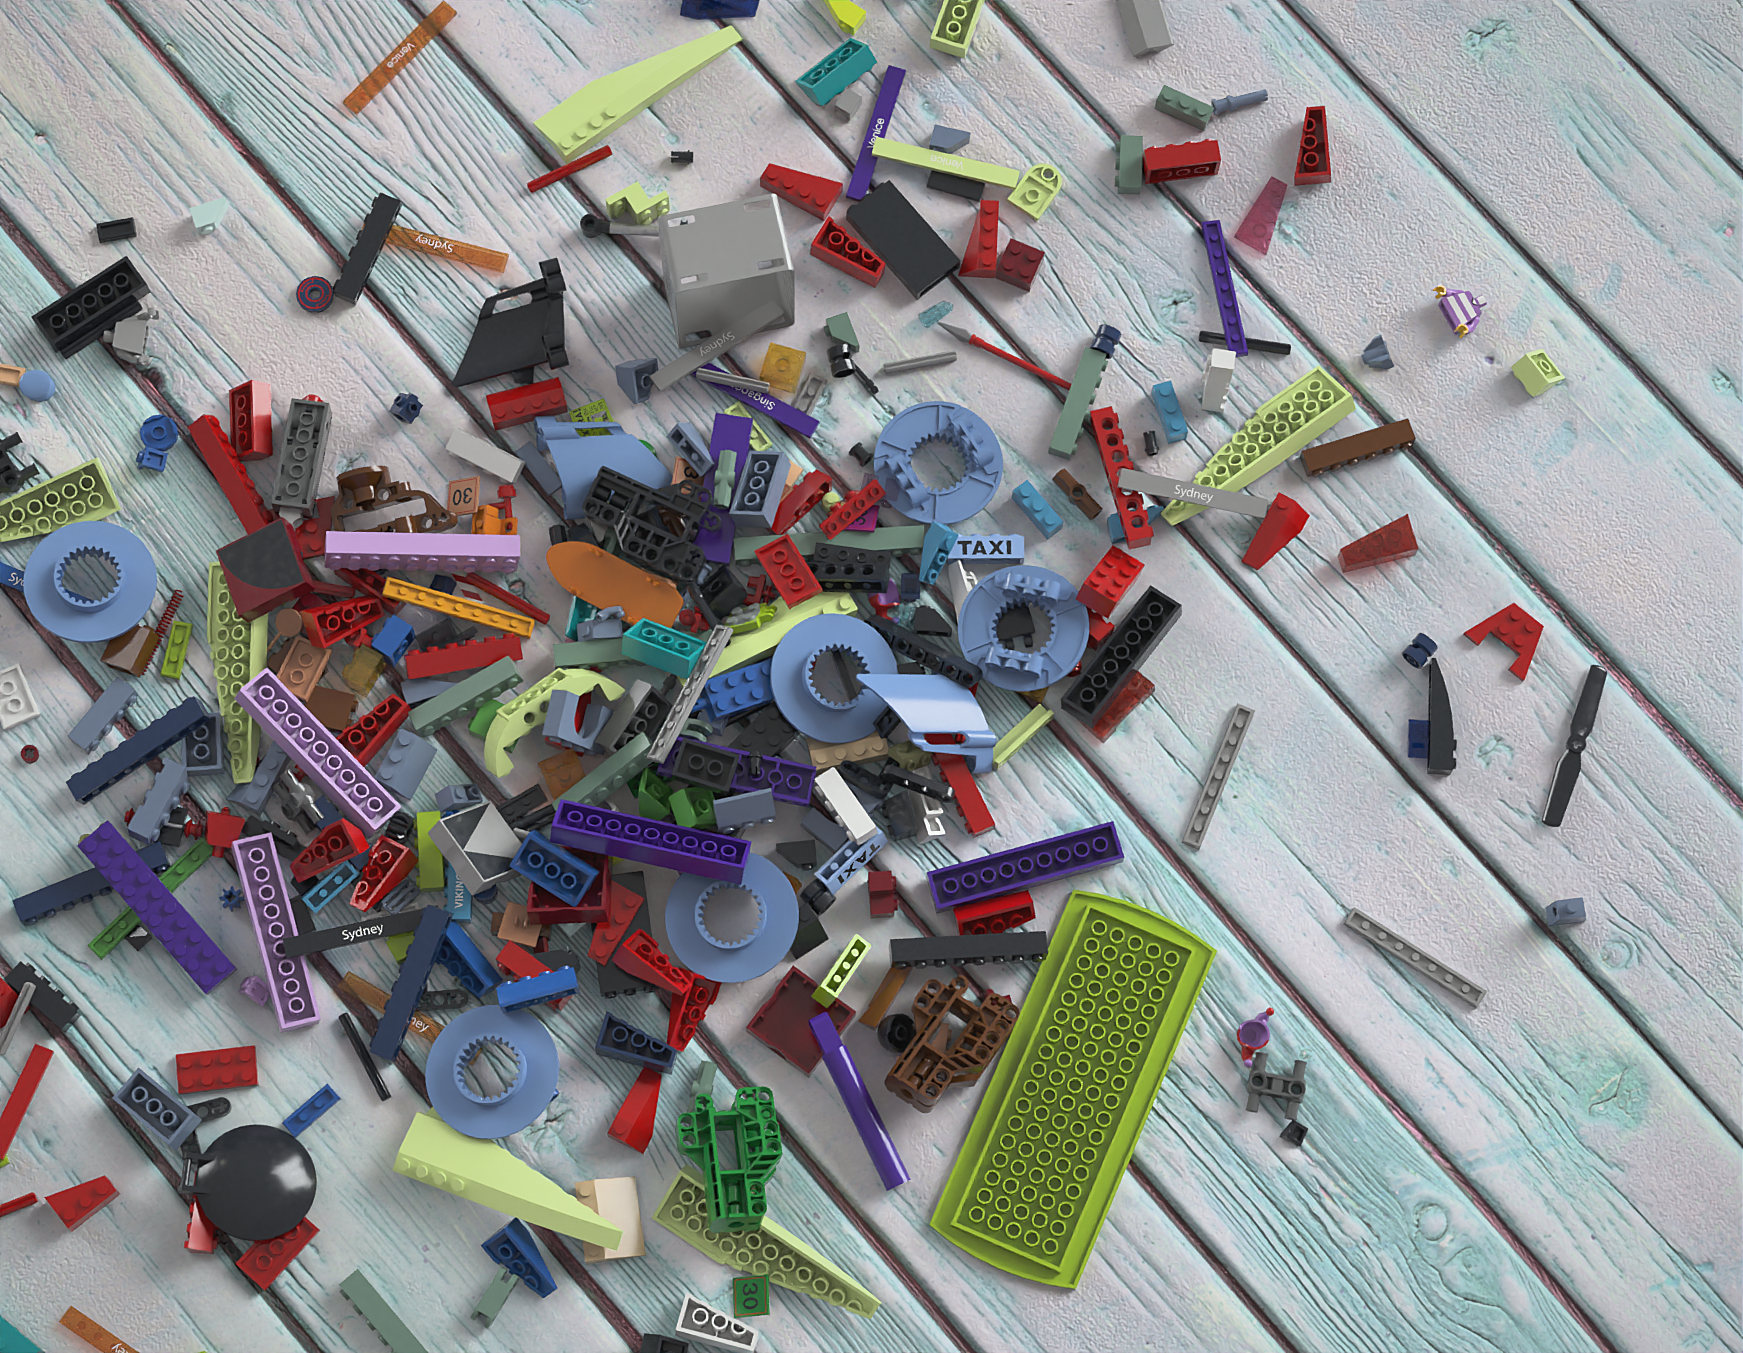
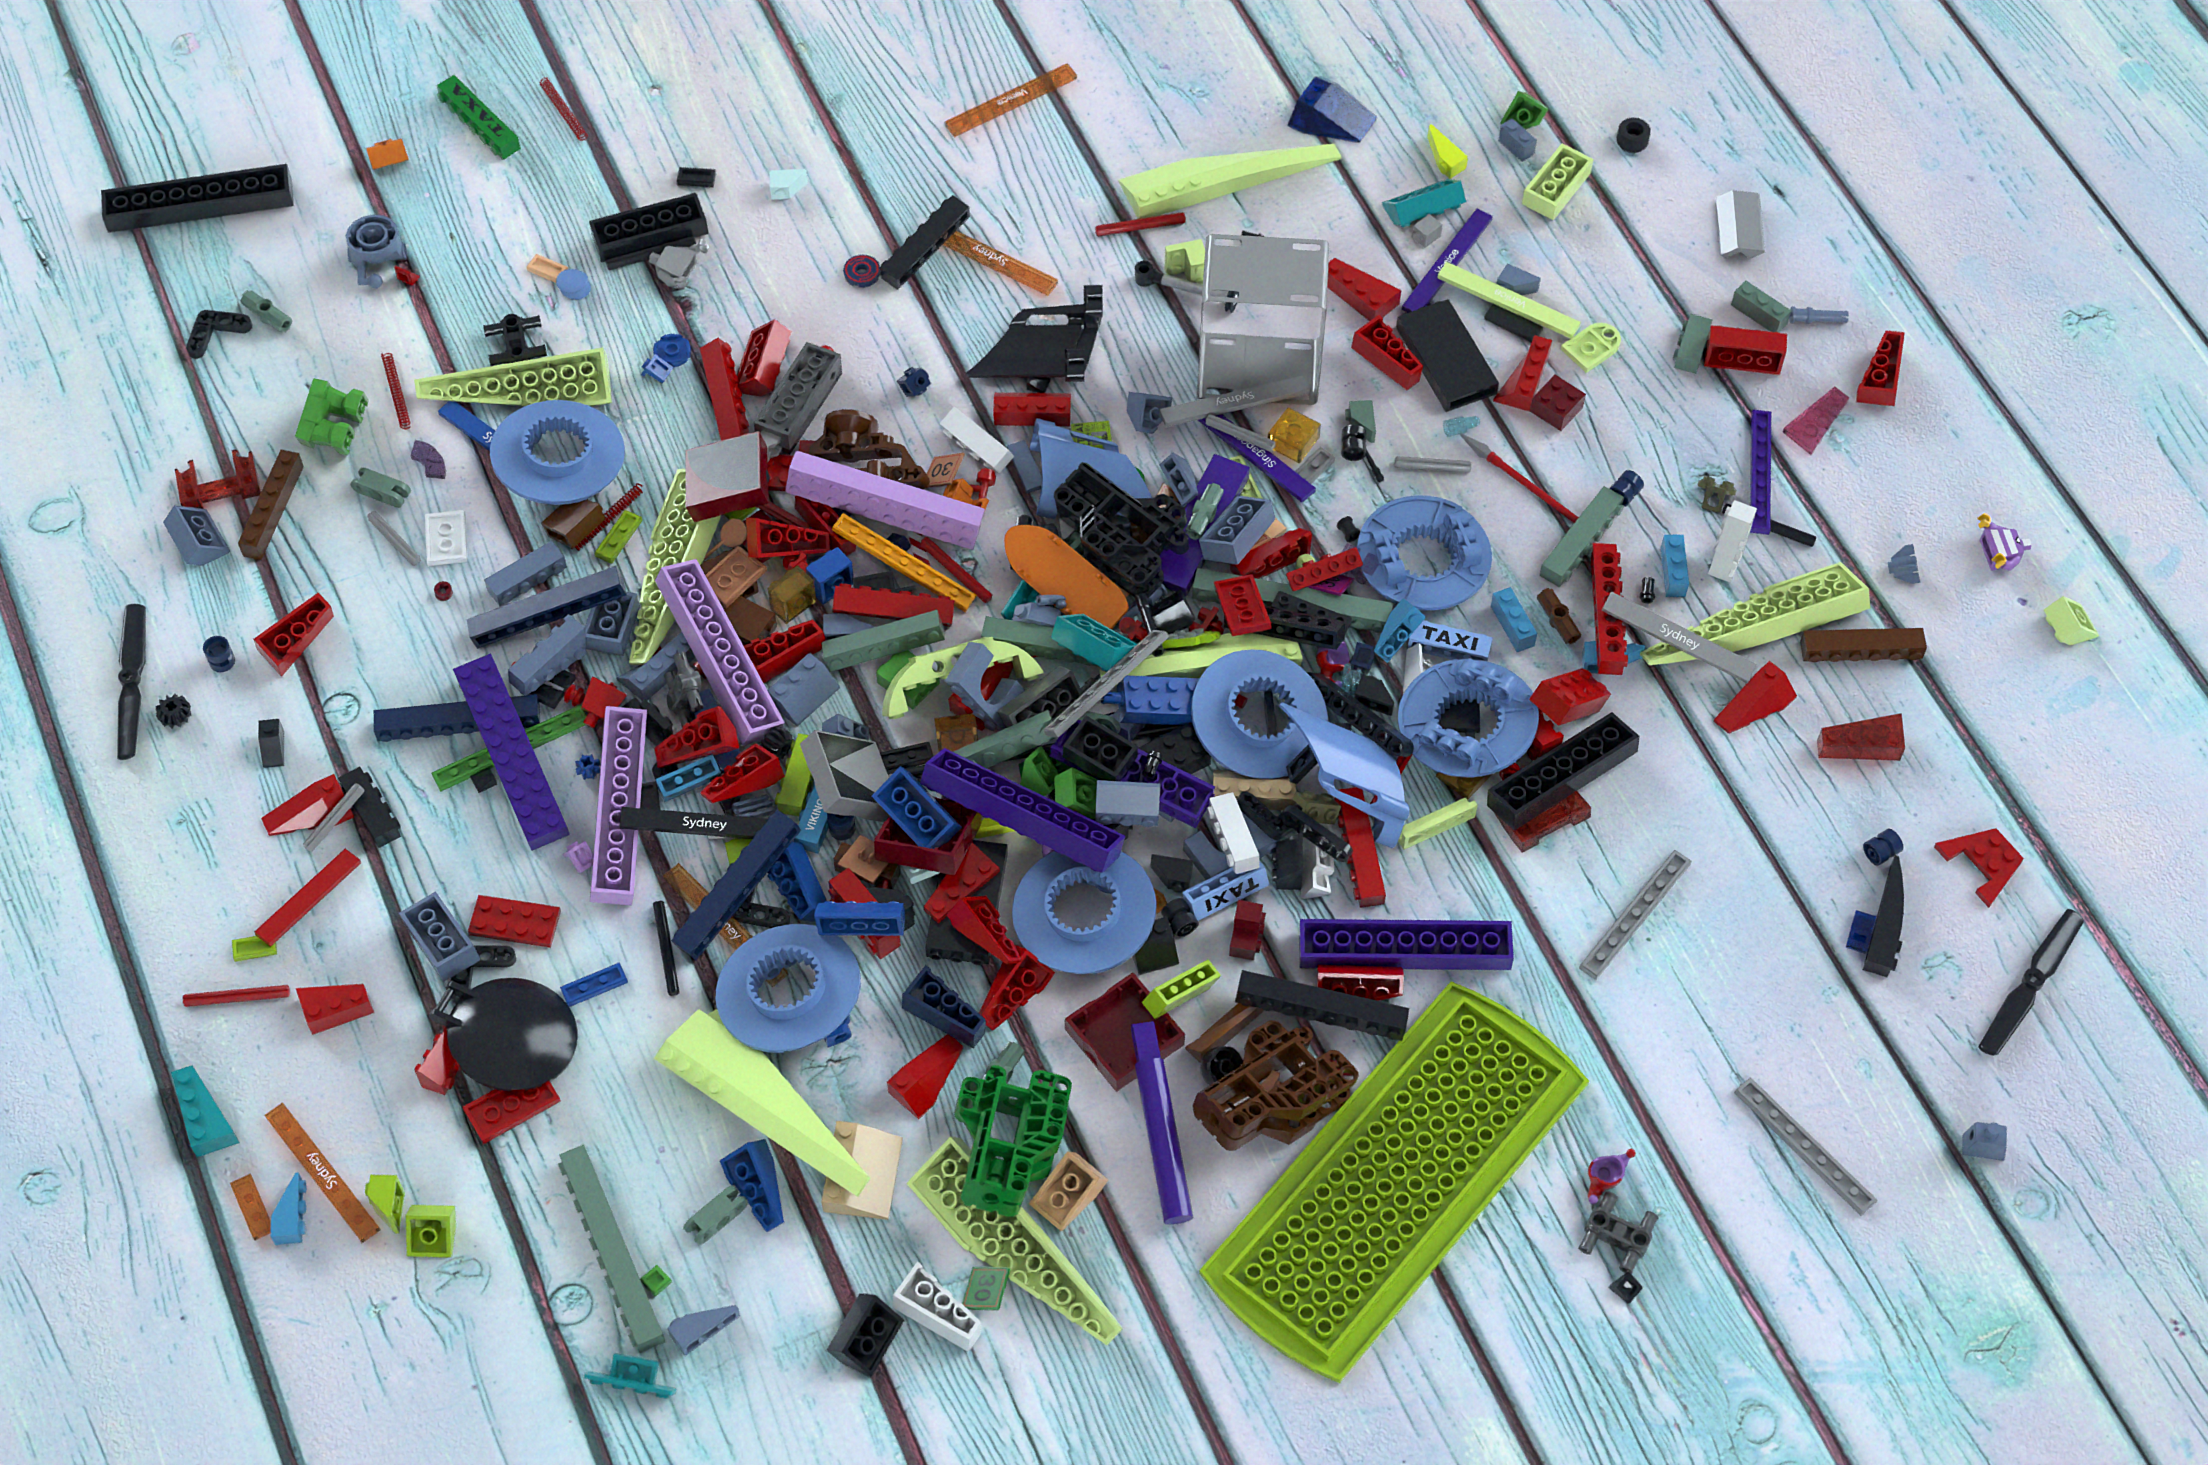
camera: 20 degrees right, 15 degrees down
(795, 1185) = (1068, 1190): none -> light nougat slope
(1188, 318) = (1722, 489): none -> olive bracket

